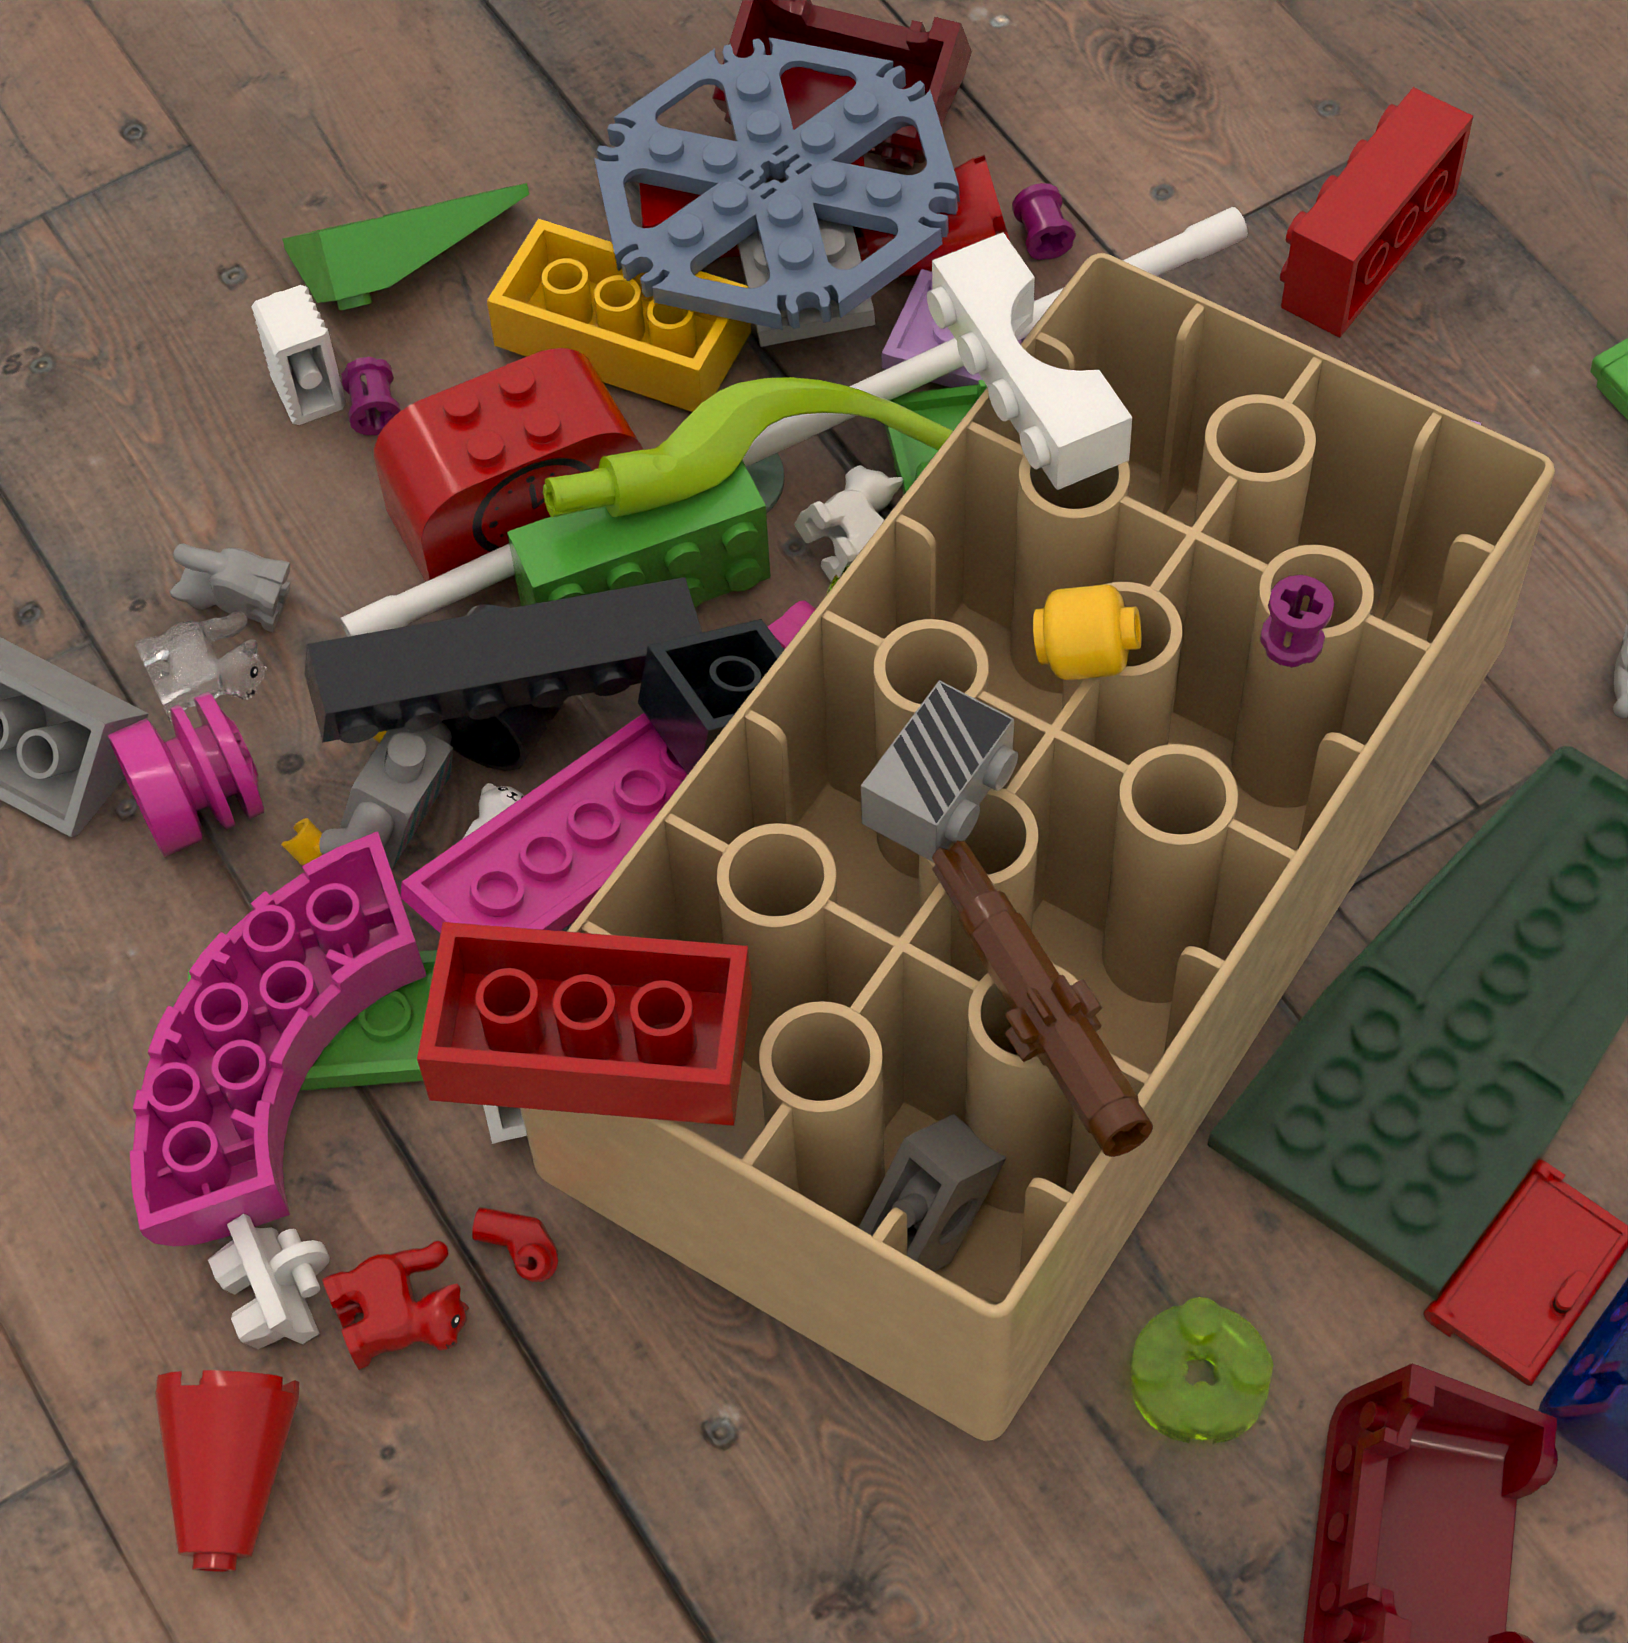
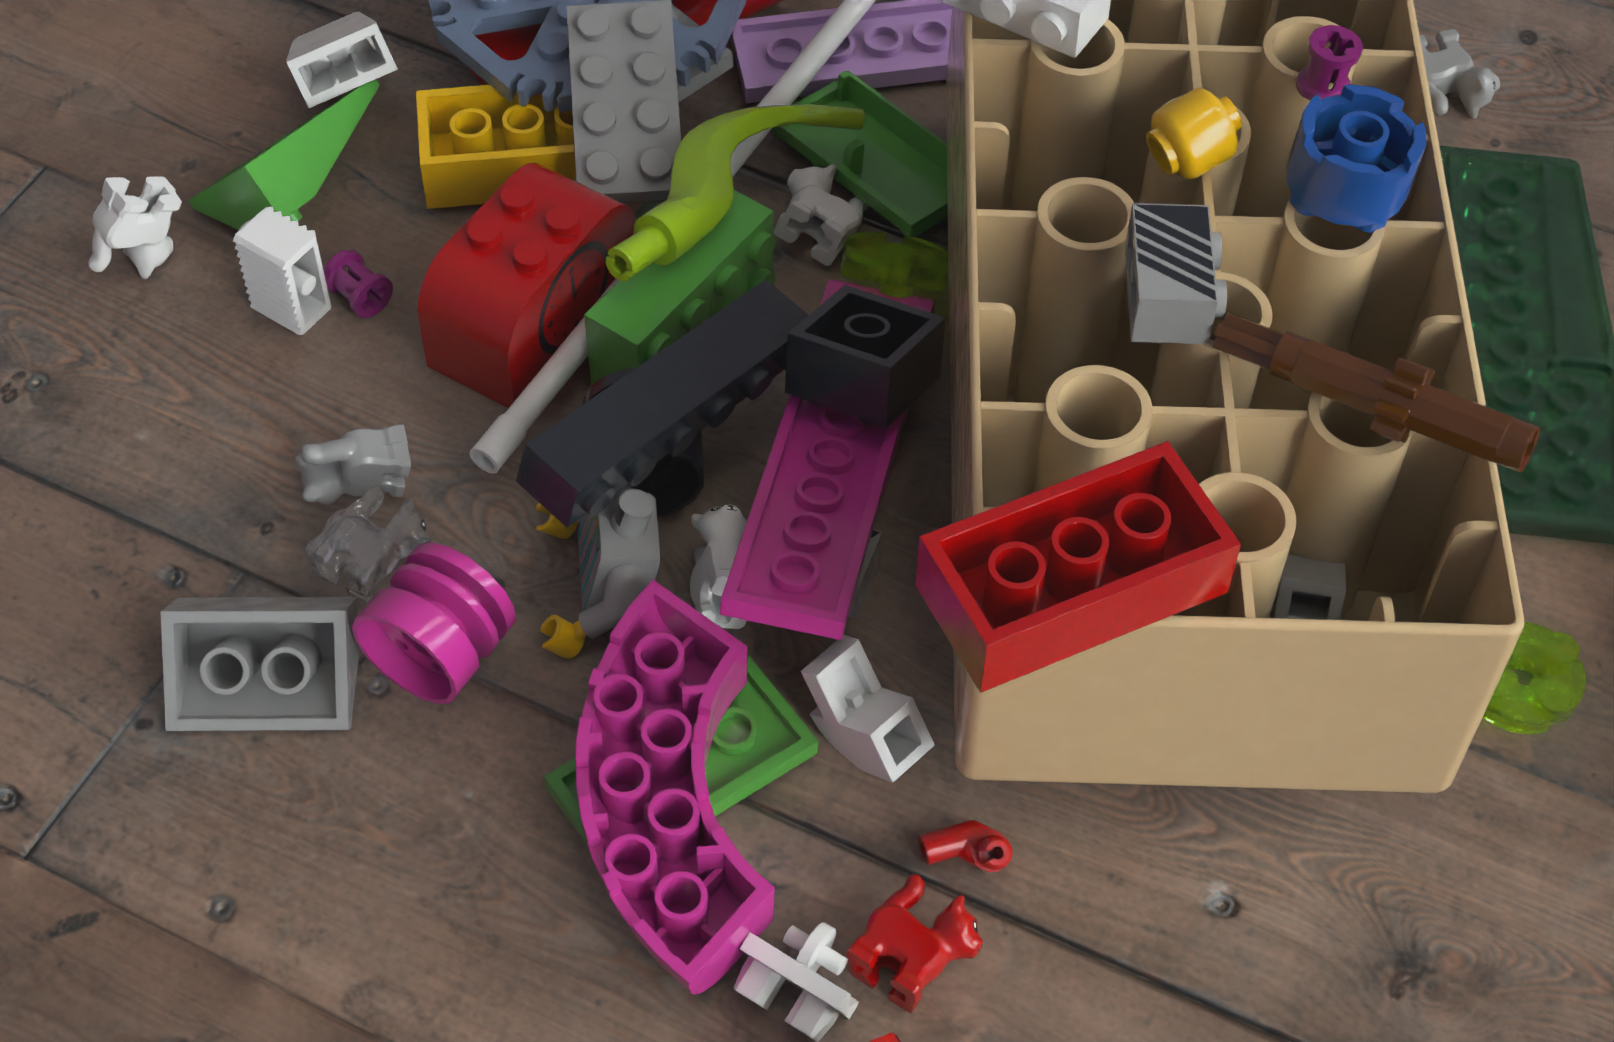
camera: 35 degrees left, 5 degrees down
(203, 245) = (134, 224): none -> white animal
(513, 145) = (339, 58): none -> white torso
(710, 312) = (624, 98): none -> light grey plate
(1223, 737) = (1354, 158): none -> blue brick

